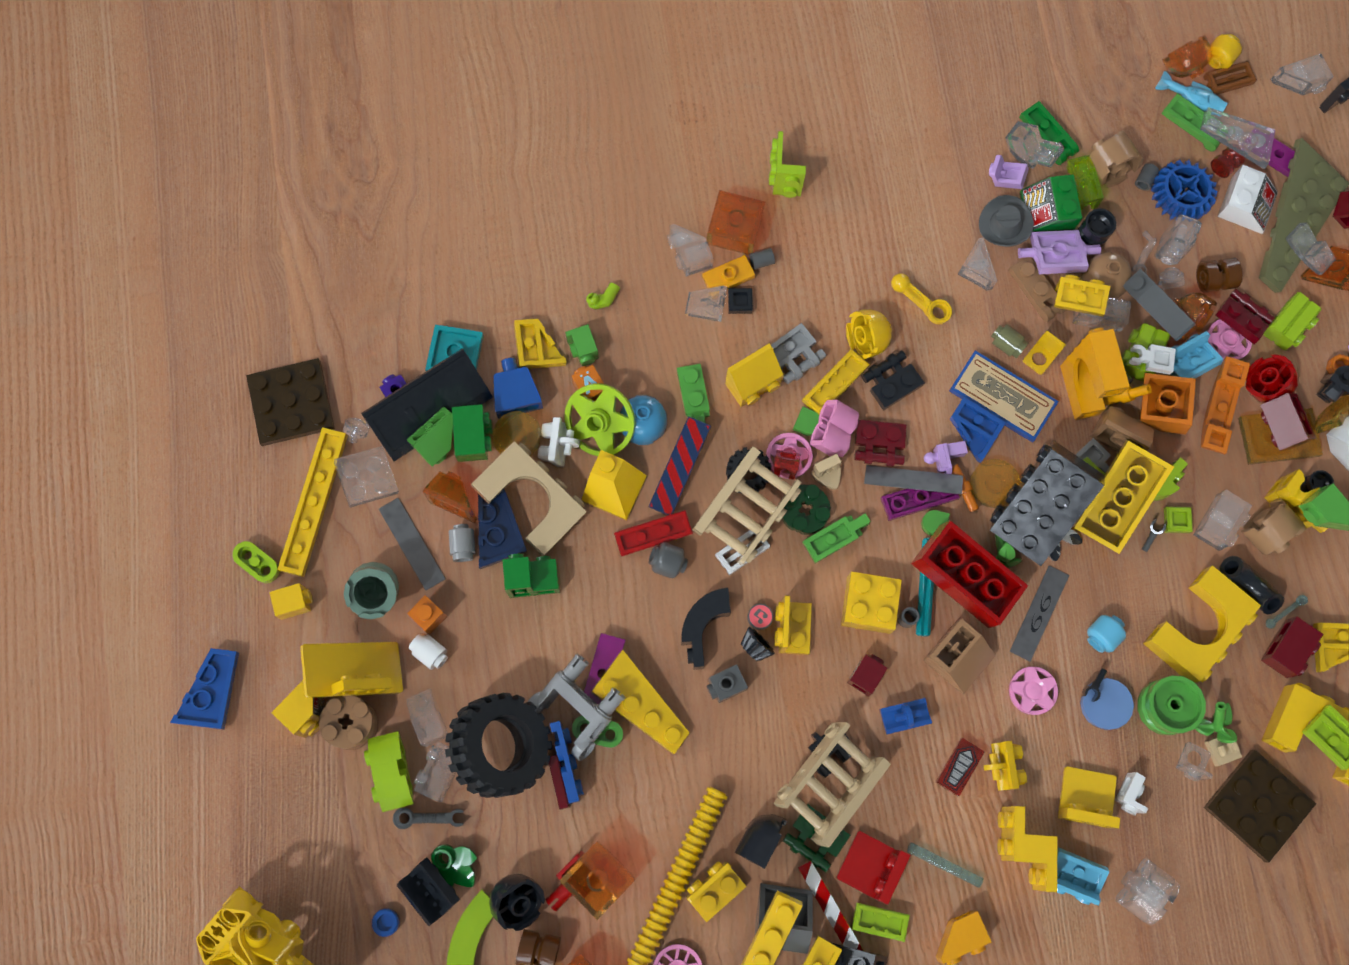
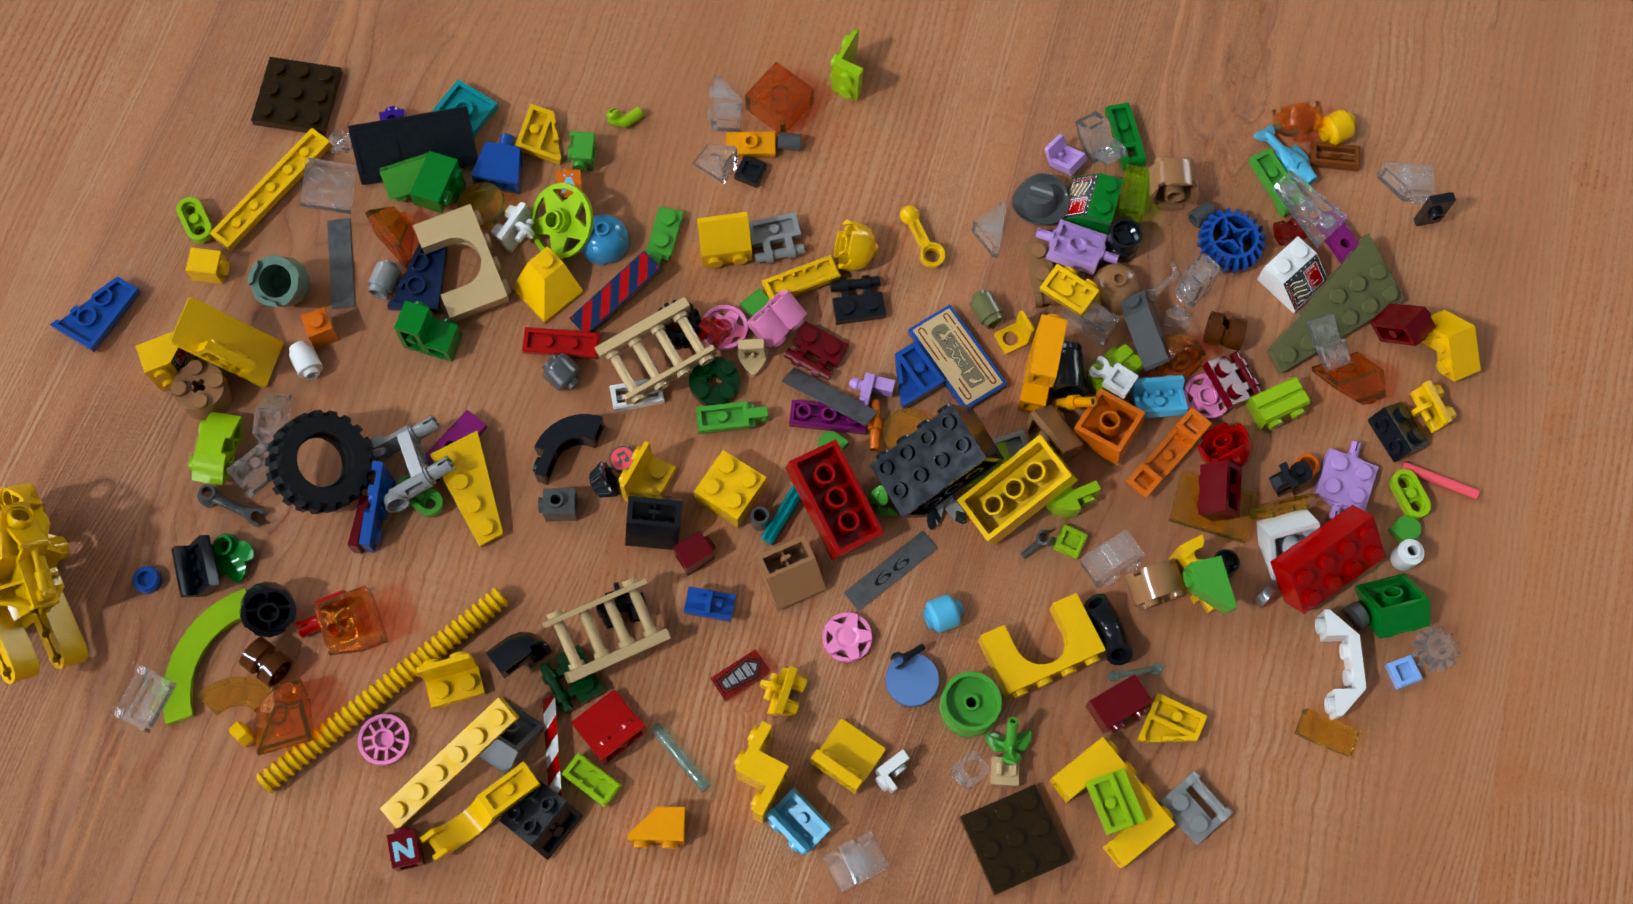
camera: 25 degrees right, 5 degrees down
(820, 661) = (653, 521): none -> black slope

